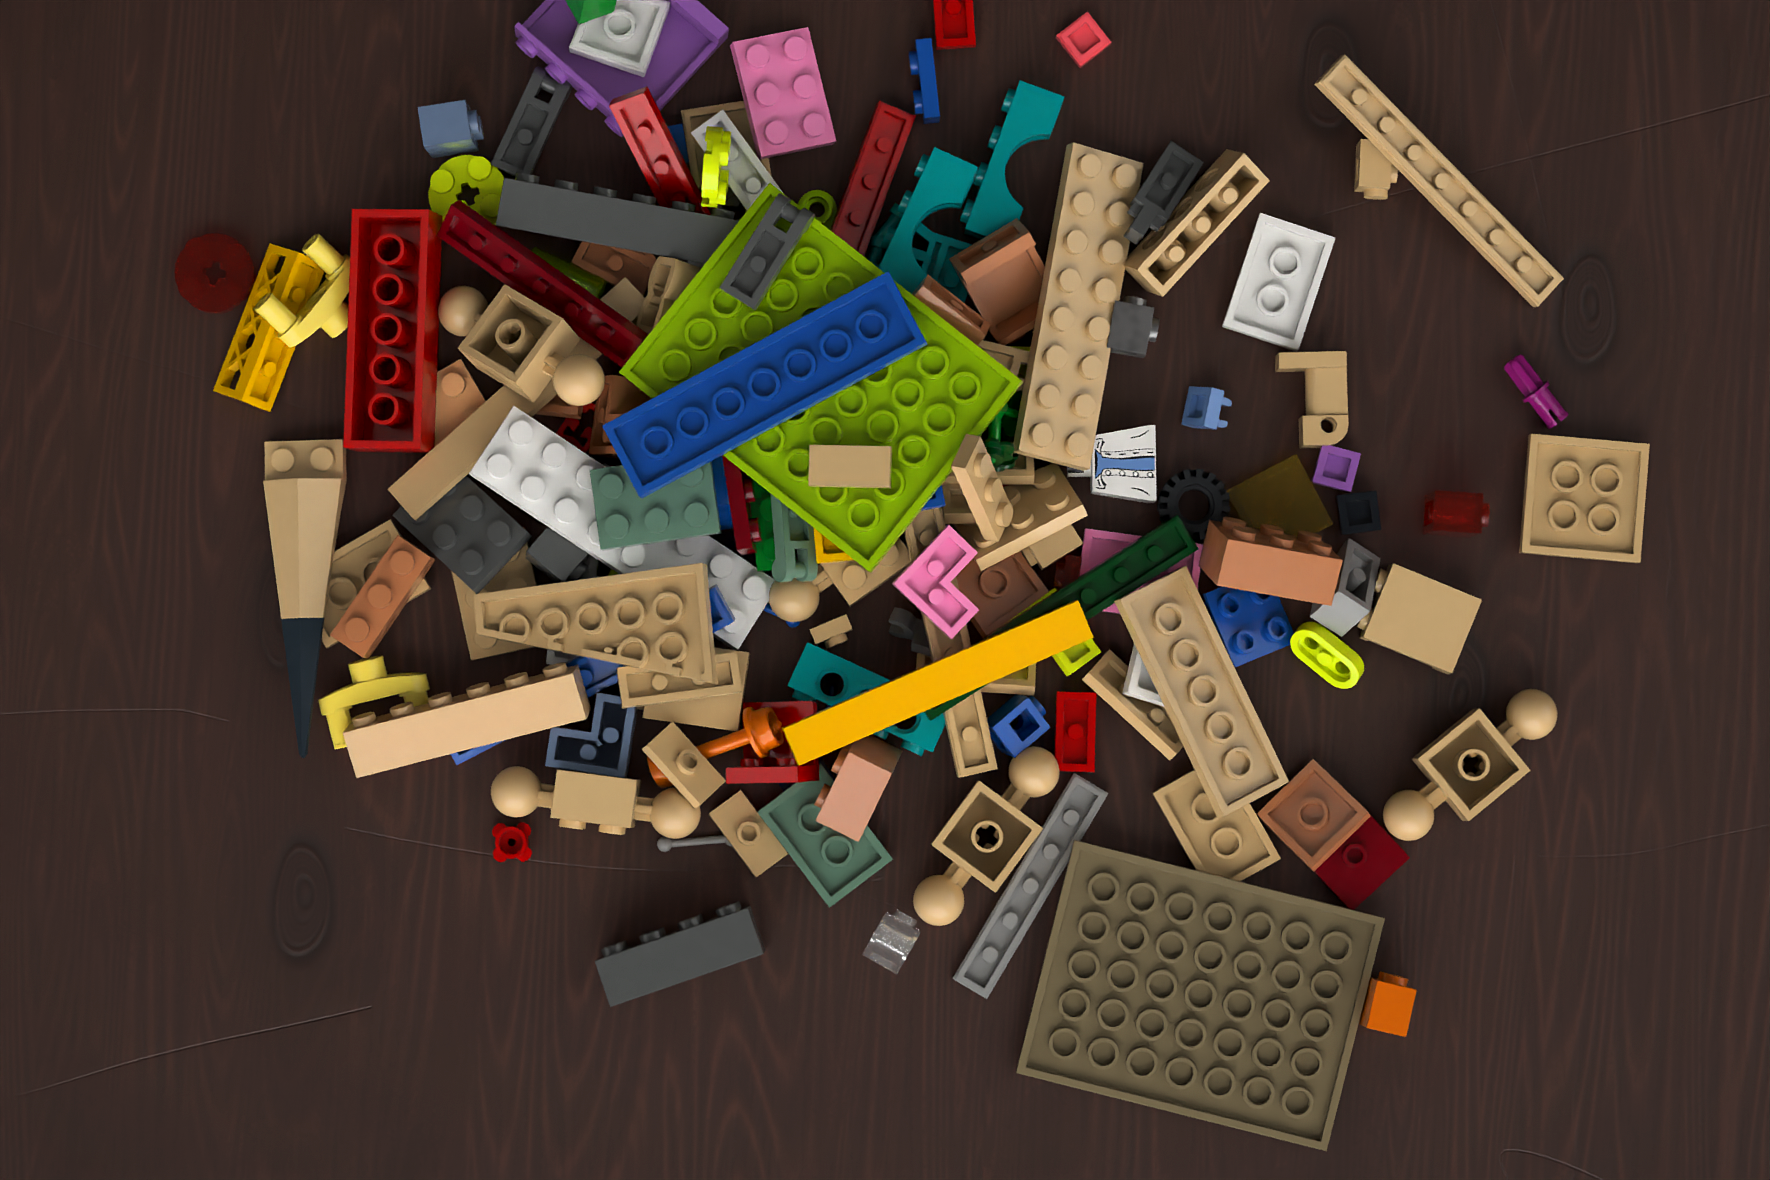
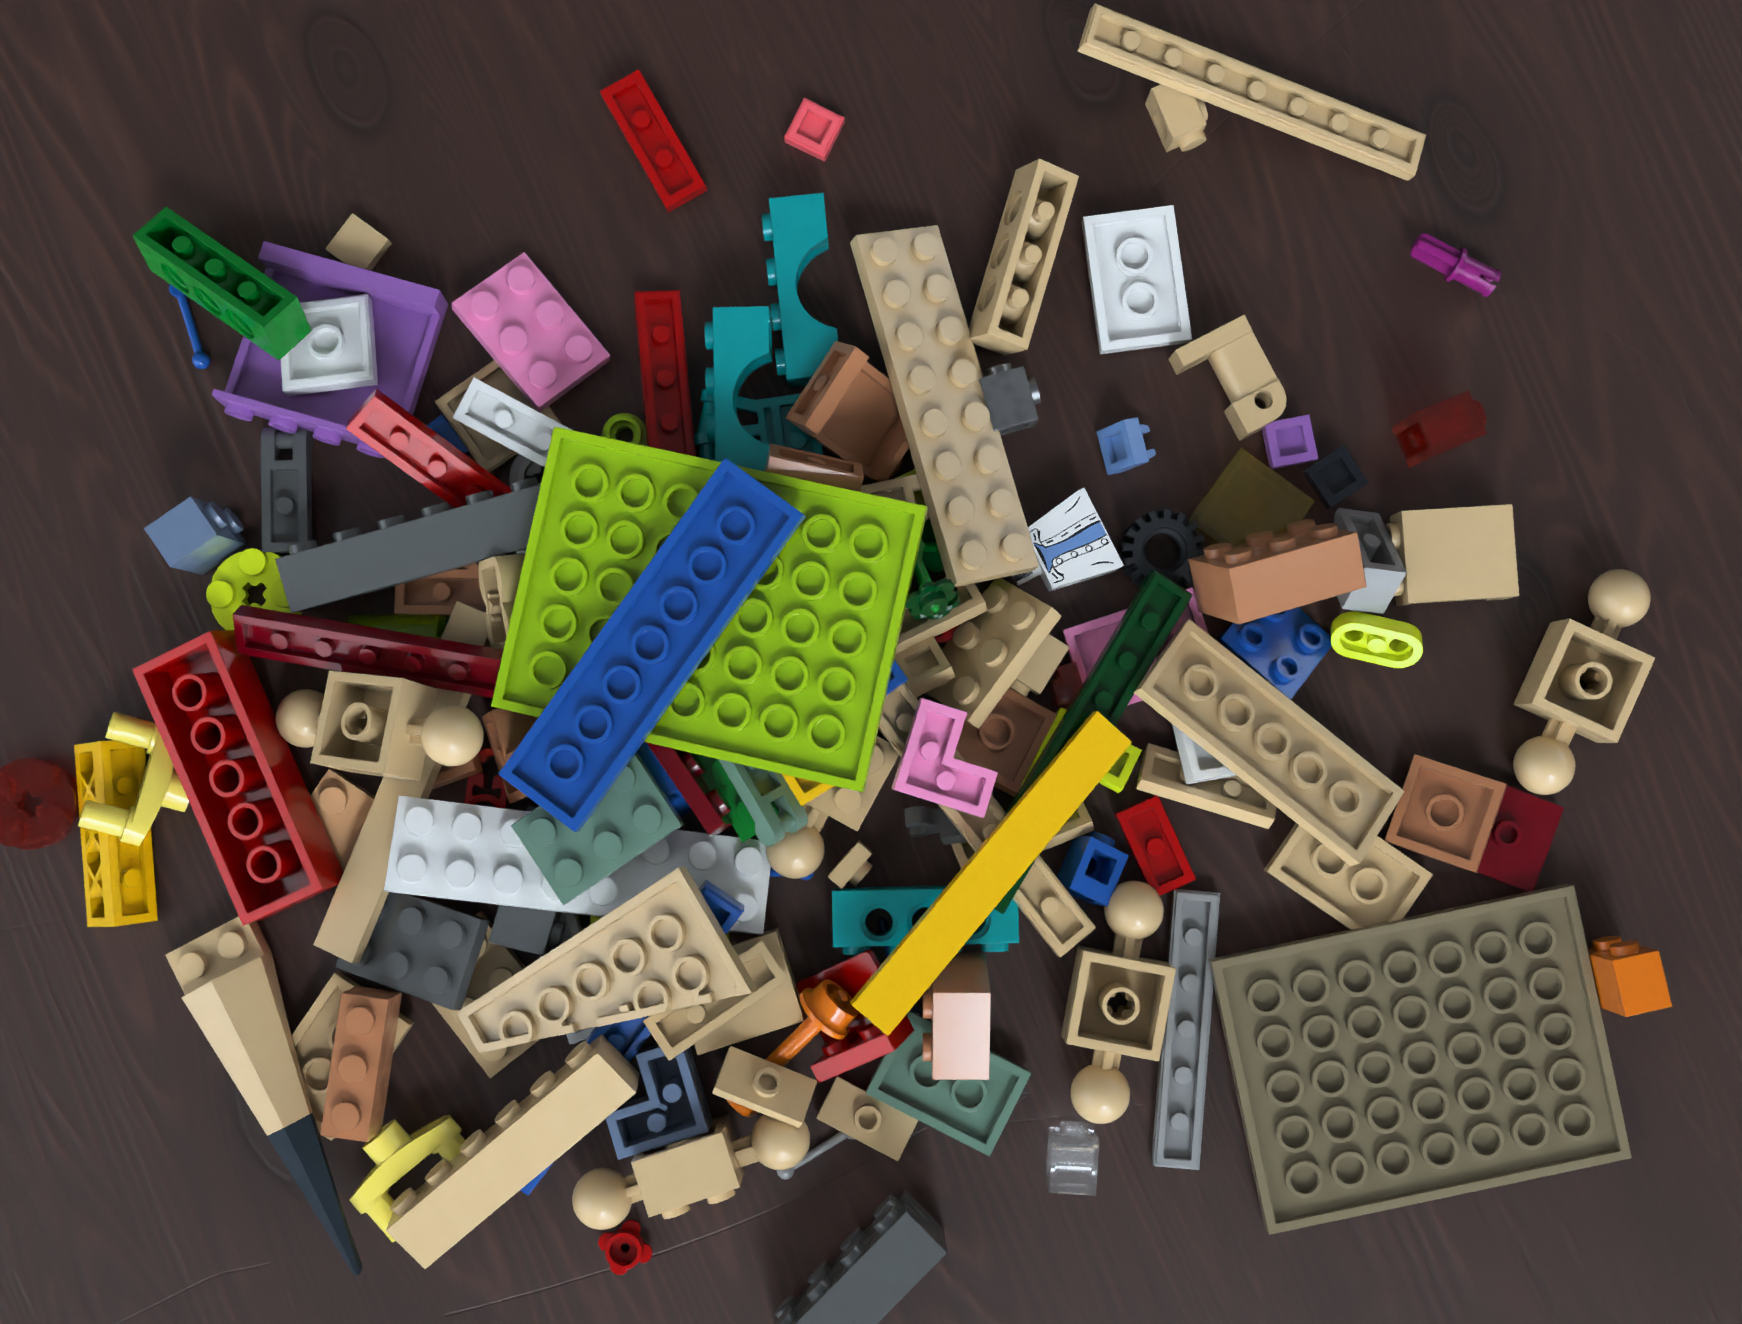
camera: 20 degrees left, 0 degrees up
(713, 177) = (496, 454): neon yellow plate -> none
(766, 252) = (585, 501): dark grey plate -> none
(850, 466) = (786, 688): tan tile -> none
(922, 64) = (659, 233): blue plate -> none
(982, 488) = (938, 641): tan plate -> none
(1162, 191) = (971, 243): dark grey hinge -> none
(1584, 498) = (1559, 349): tan plate -> none

